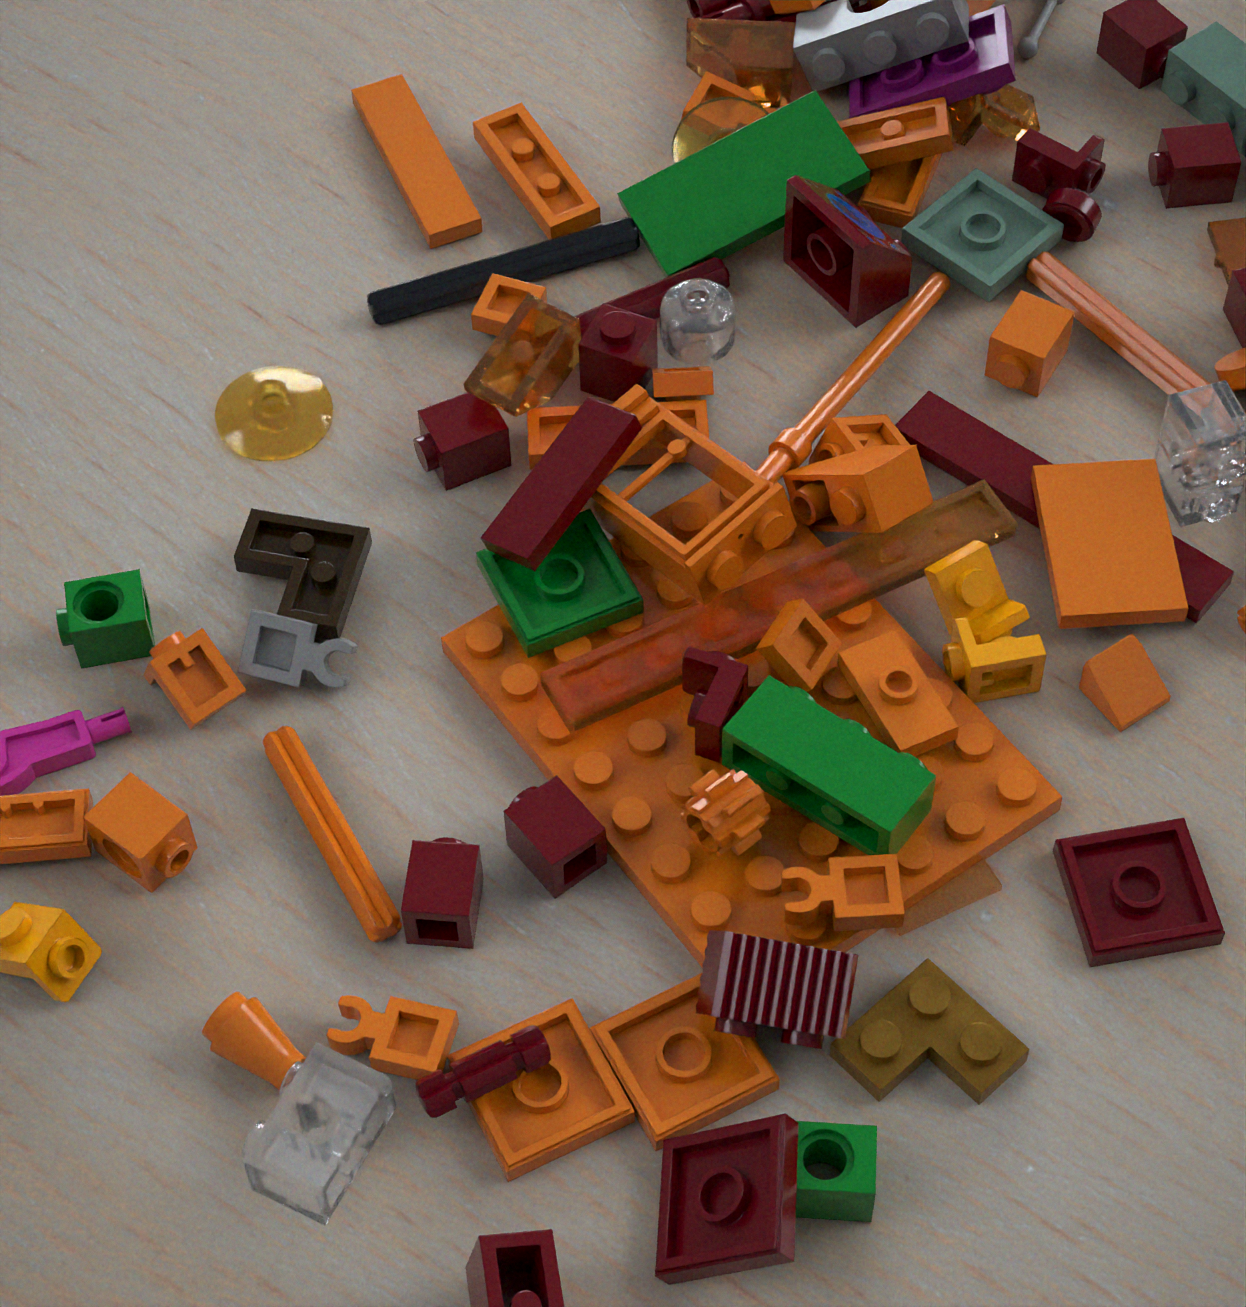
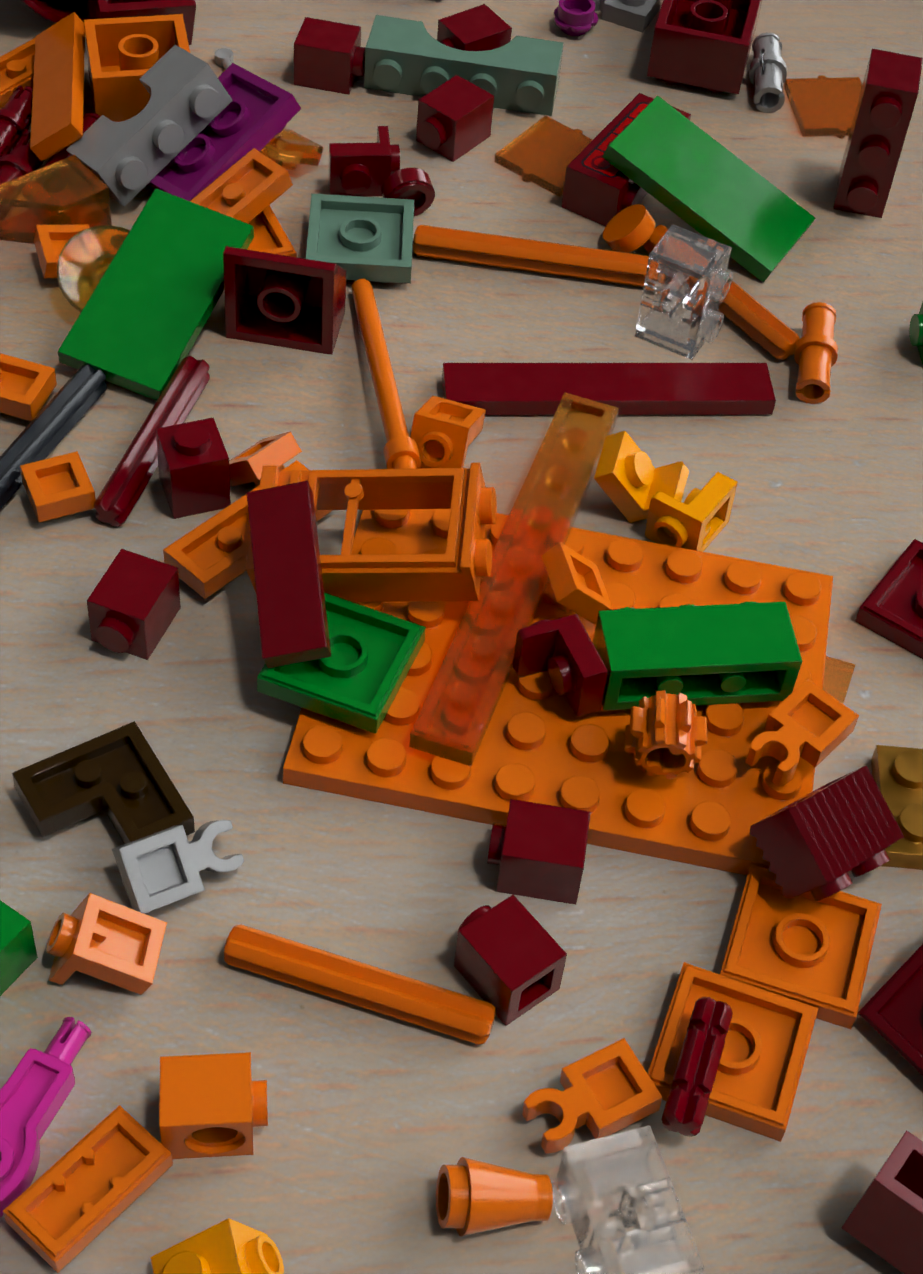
camera: 50 degrees left, 5 degrees down
(527, 358) = (143, 499): clear orange slope -> none
(697, 322) = (235, 401): clear head -> none
(859, 490) = (505, 437): orange slope -> none
(897, 694) = (668, 573): orange plate -> none
(1029, 343) = (477, 291): orange brick -> none
(1108, 544) = (679, 390): orange tile -> none
(1123, 683) = (782, 479): orange slope -> none

